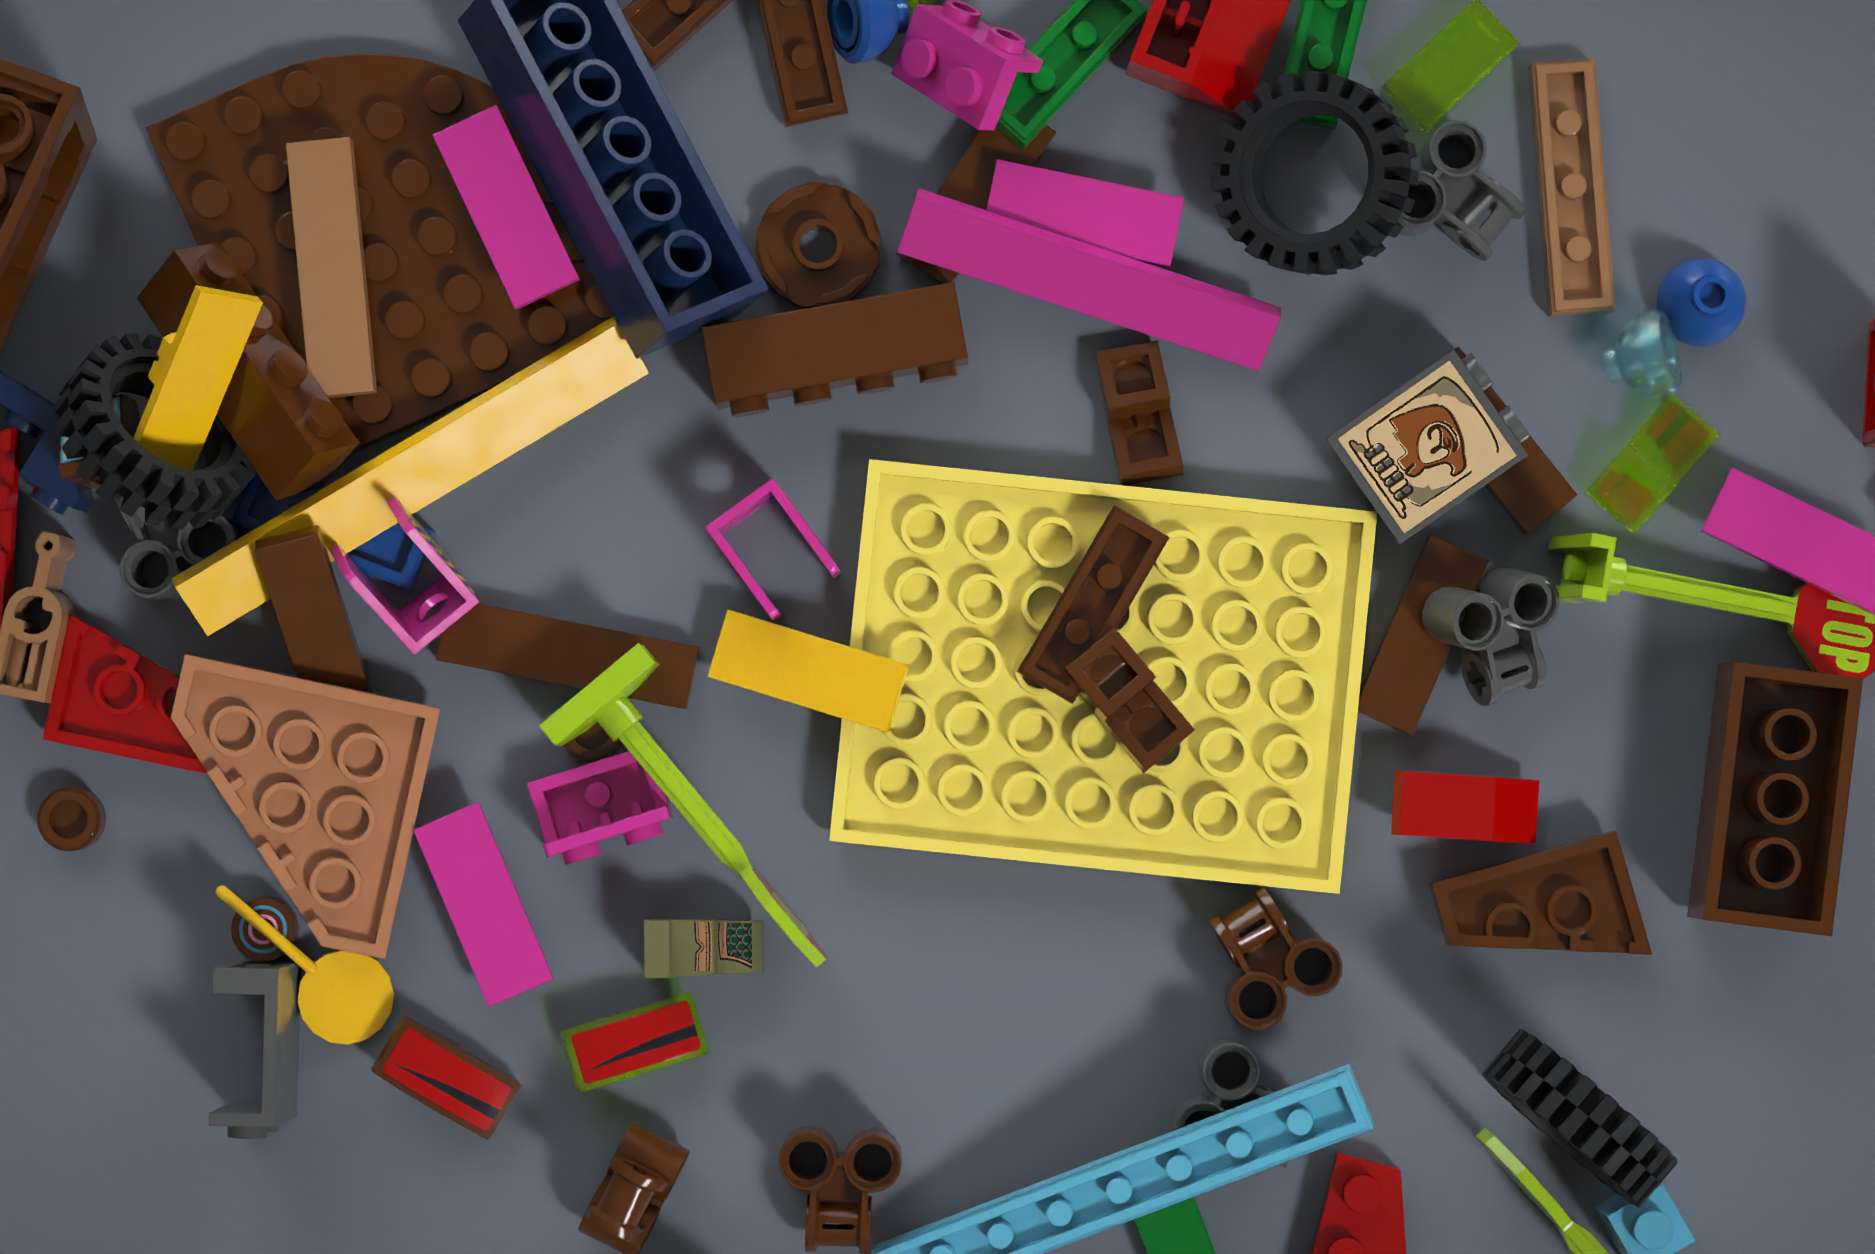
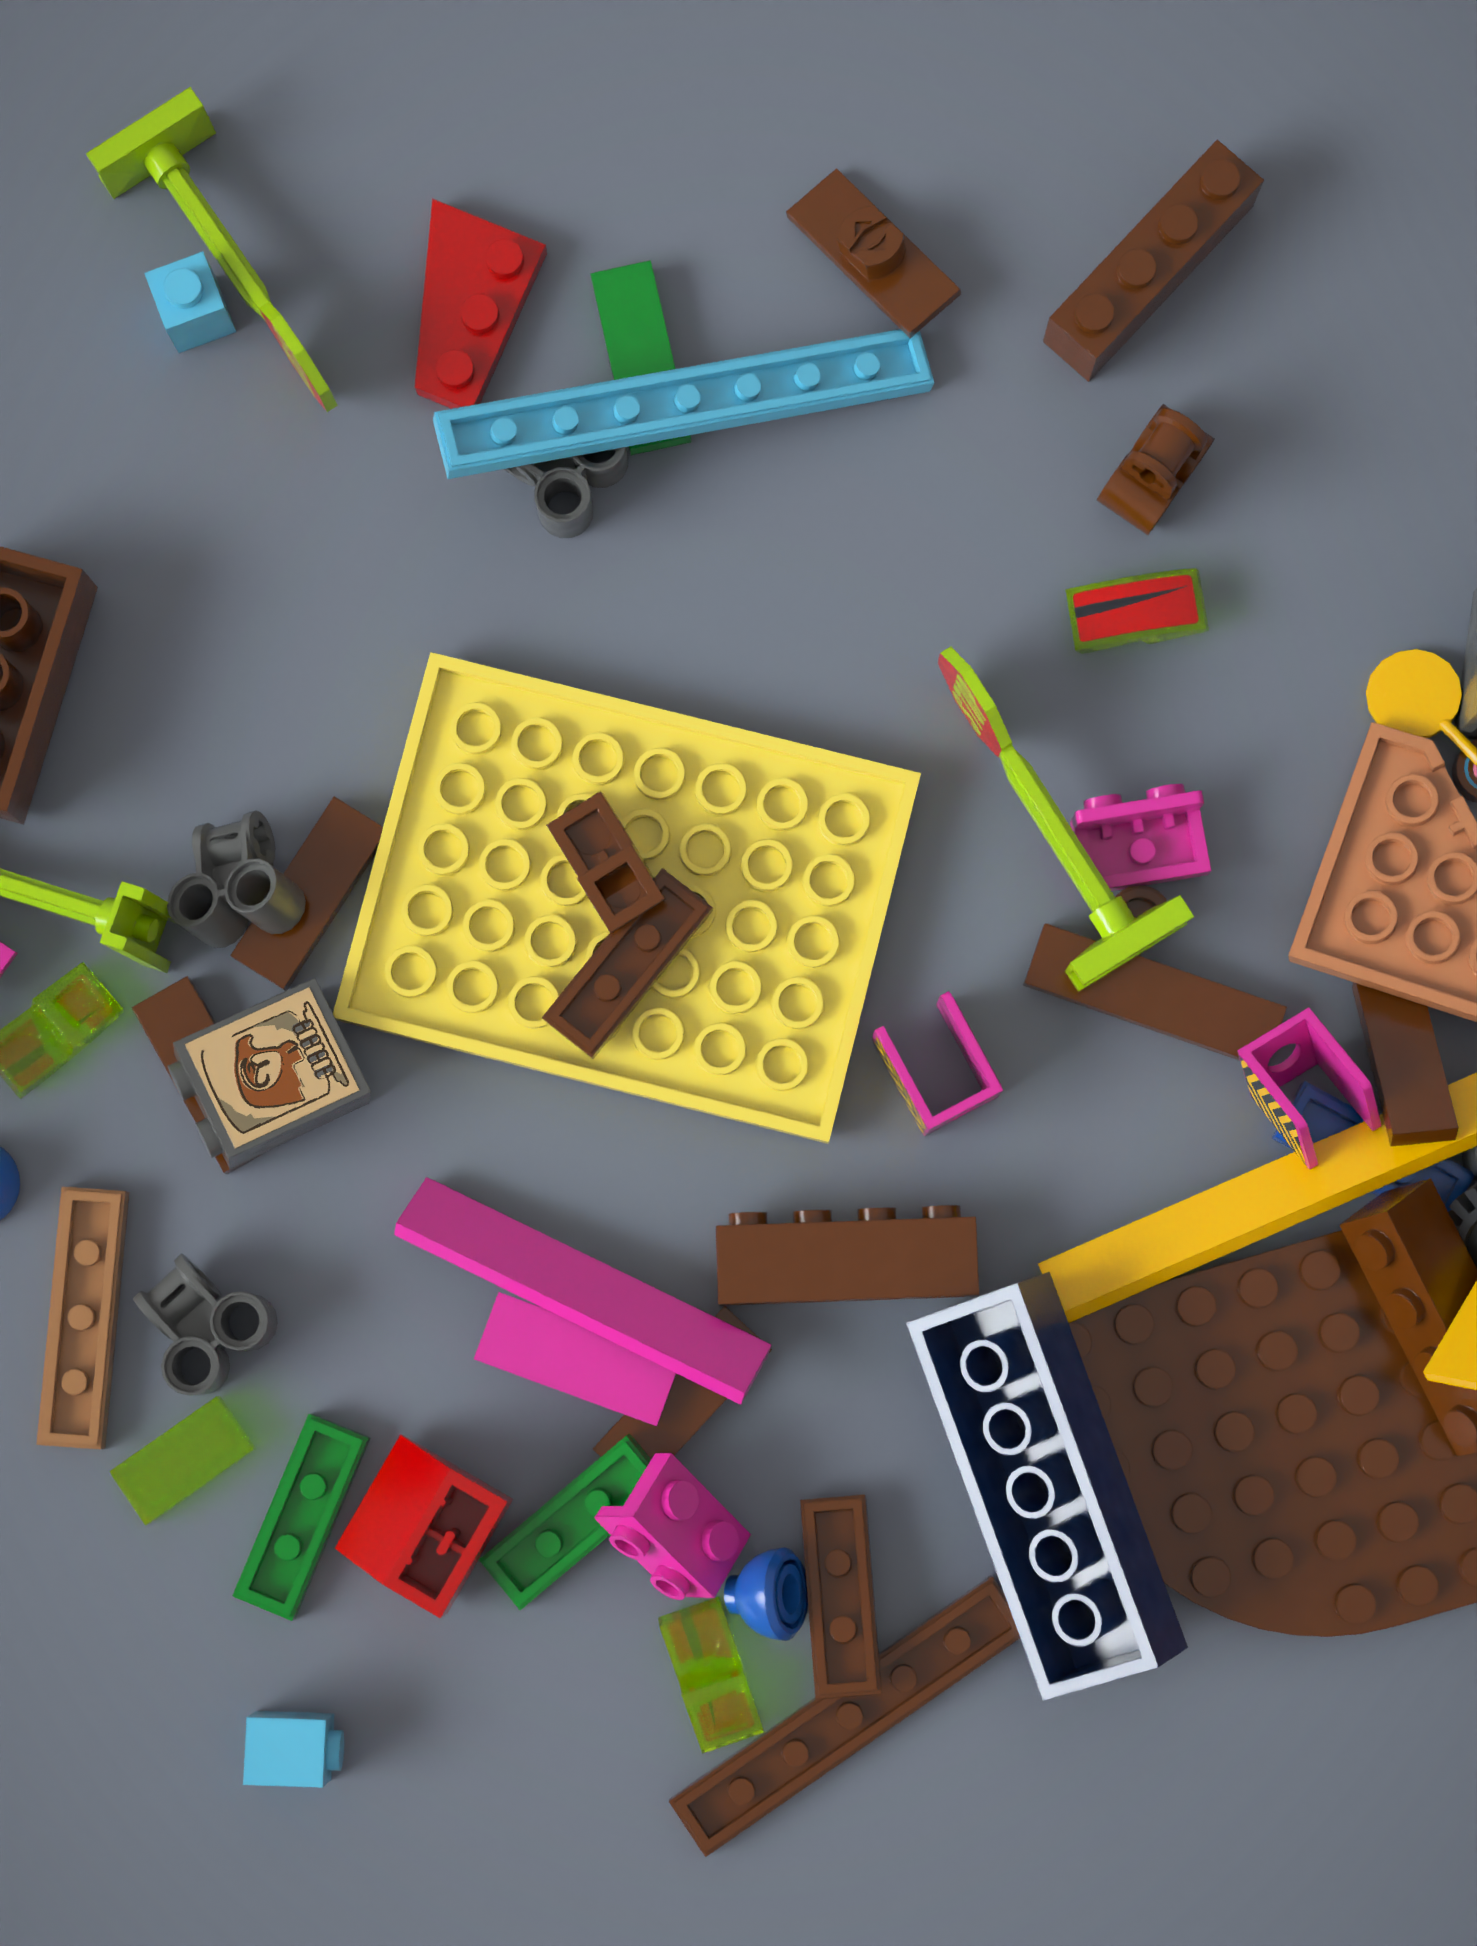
camera: 170 degrees left, 5 degrees down
(331, 266) = (1346, 1414): medium nougat tile -> none
(446, 1077) = (1325, 601): slope -> none
(483, 904) = (1268, 760): dark pink piece -> none
(506, 207) = (1162, 1445): dark pink piece -> none
(702, 947) = (1059, 690): olive leg -> none
(808, 670) = (918, 940): yellow piece -> none
(810, 208) = (887, 1361): reddish brown tile -> none
(840, 1189) = (956, 442): reddish brown piece -> none
(1139, 413) = (552, 1153): reddish brown slope -> none
(1244, 157) = (412, 1373): black tyre -> none
(1268, 956) = (511, 603): reddish brown piece -> none
(1465, 807) = (294, 717): red slope -> none
(1546, 900) = (231, 620): reddish brown wing -> none
(1580, 1117) = (234, 397): black tyre -> none
(1646, 355) = (39, 1134): clear light blue brick -> none

